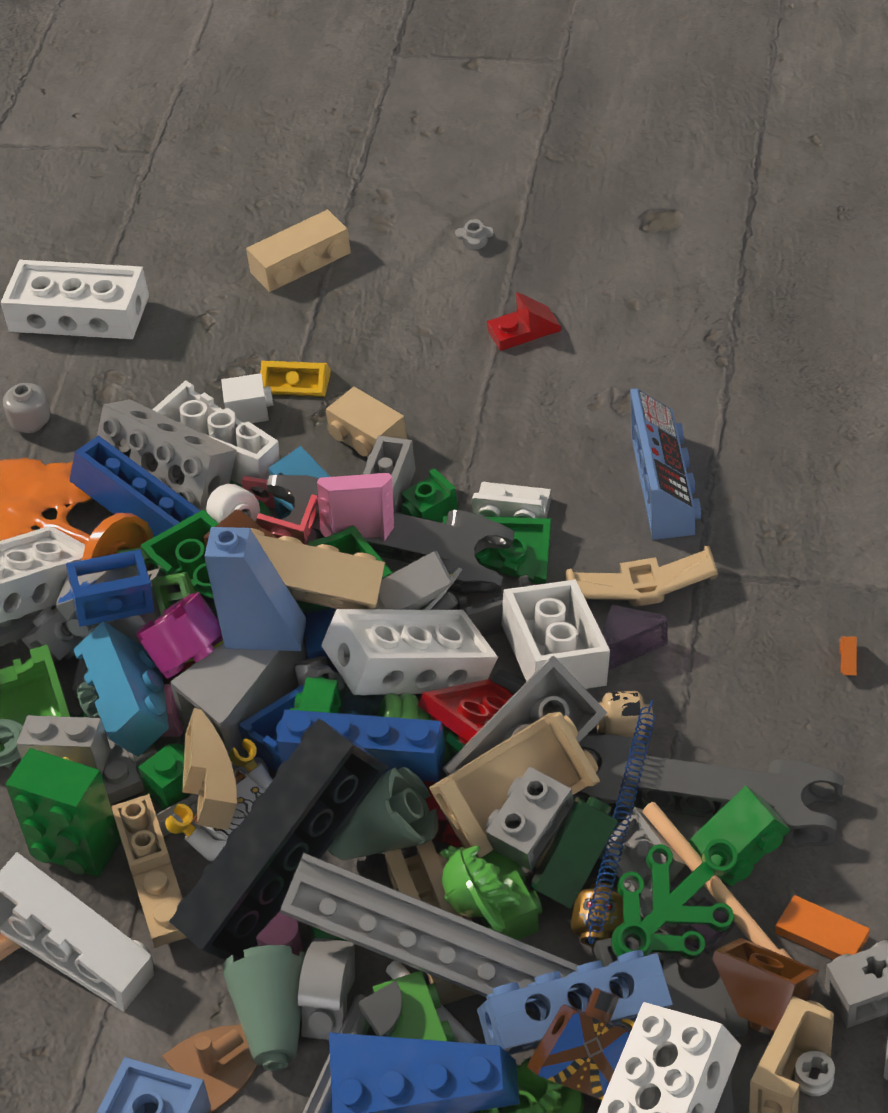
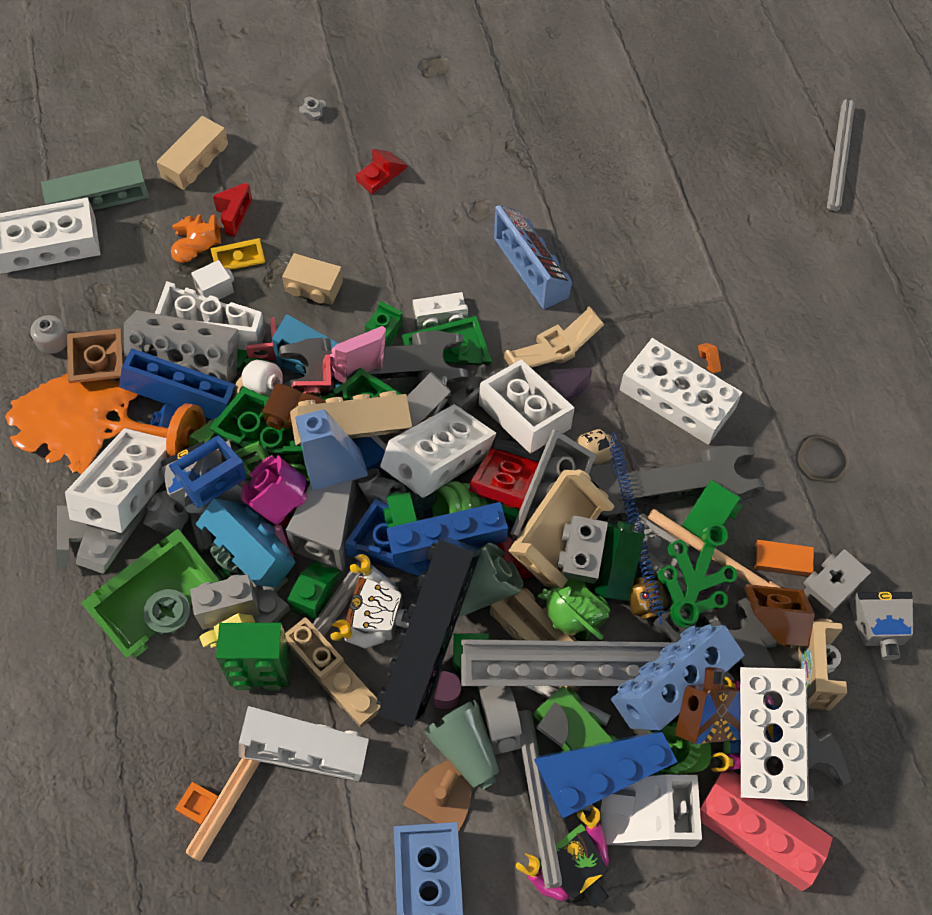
camera: 30 degrees left, 15 degrees up
(56, 437) = (94, 355): none -> medium nougat slope
(170, 262) = (96, 184): none -> sand green brick
(209, 773) = (345, 588): tan slope -> none
(254, 345) = (199, 237): none -> orange animal
(316, 322) = (233, 206): none -> red slope
(393, 457) = (348, 313): light grey brick -> none
(781, 682) = (680, 391): none -> white brick

